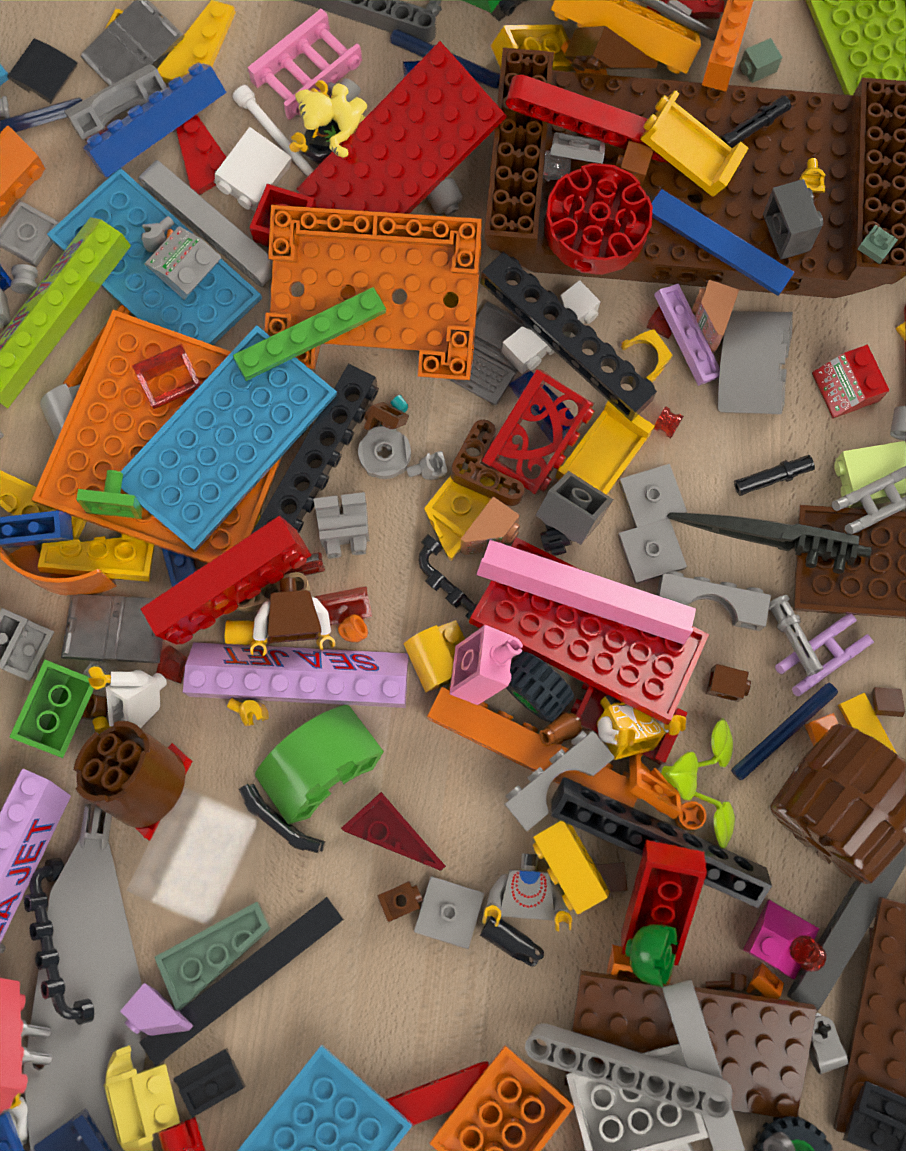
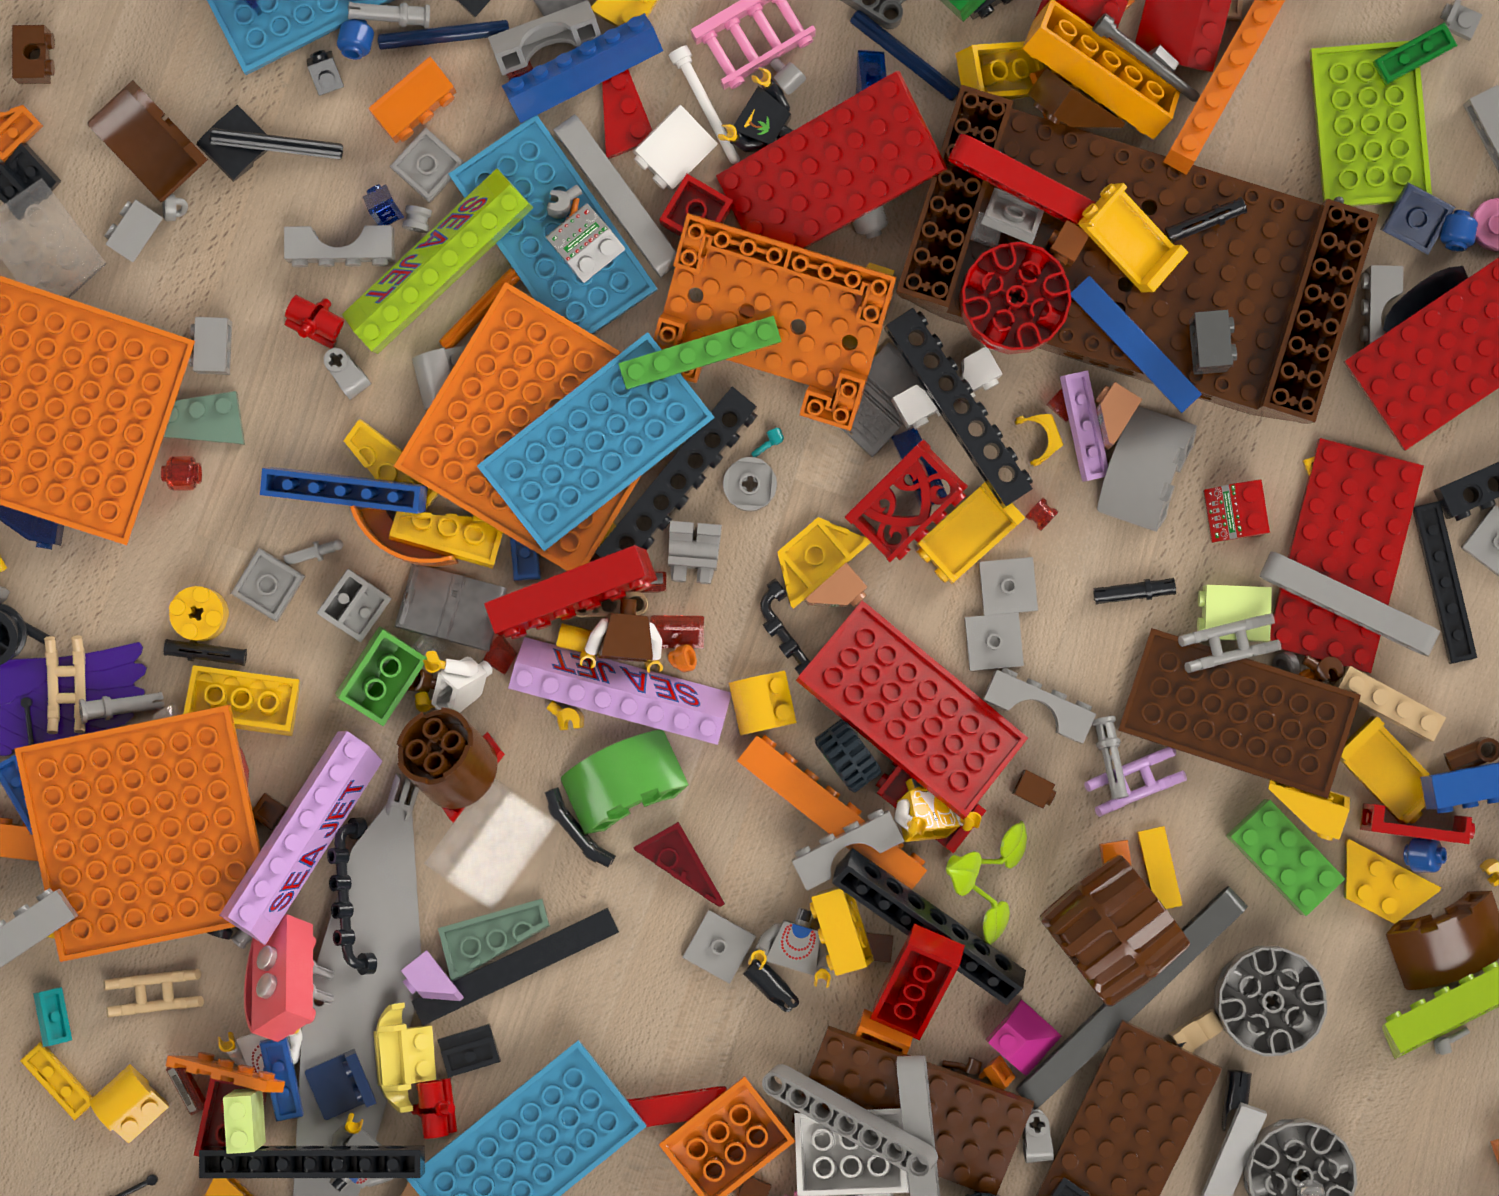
camera: 15 degrees right, 10 degrees up
(110, 501) = (474, 486): bright green tile -> none
(161, 364) = (542, 354): clear red tile -> none
(319, 110) = (756, 103): light yellow animal -> none
(388, 415) = (759, 447): reddish brown bracket -> none
(388, 901) = (665, 922): reddish brown brick -> none
(430, 466) = (791, 508): light grey piece -> none
(476, 471) = (837, 527): reddish brown beam -> none
(483, 664) = (800, 725): bright pink brick -> none
(554, 541) = (900, 611): black gear -> none
(563, 728) = (864, 800): dark orange cone -> none
(574, 507) = (924, 587): dark grey brick -> none
(587, 592) = (916, 674): bright pink tile -> none
(652, 953) = (895, 1025): green cylinder -> none
(653, 788) = (932, 874): orange wing -> none
(693, 812) = (969, 907): orange wheel -> none
(760, 60) = (1240, 132): sand green brick -> none
(784, 536) = (1123, 656): pearl dark grey piece -> none
(784, 731) = (1078, 846): dark blue axle -> none
(801, 948) = (1041, 1055): clear red wheel -> none
(814, 176) = (1247, 295): yellow piece -> none
(877, 244) = (1287, 390): sand green tile -> none
(888, 702) = (1184, 840): reddish brown tile -> none

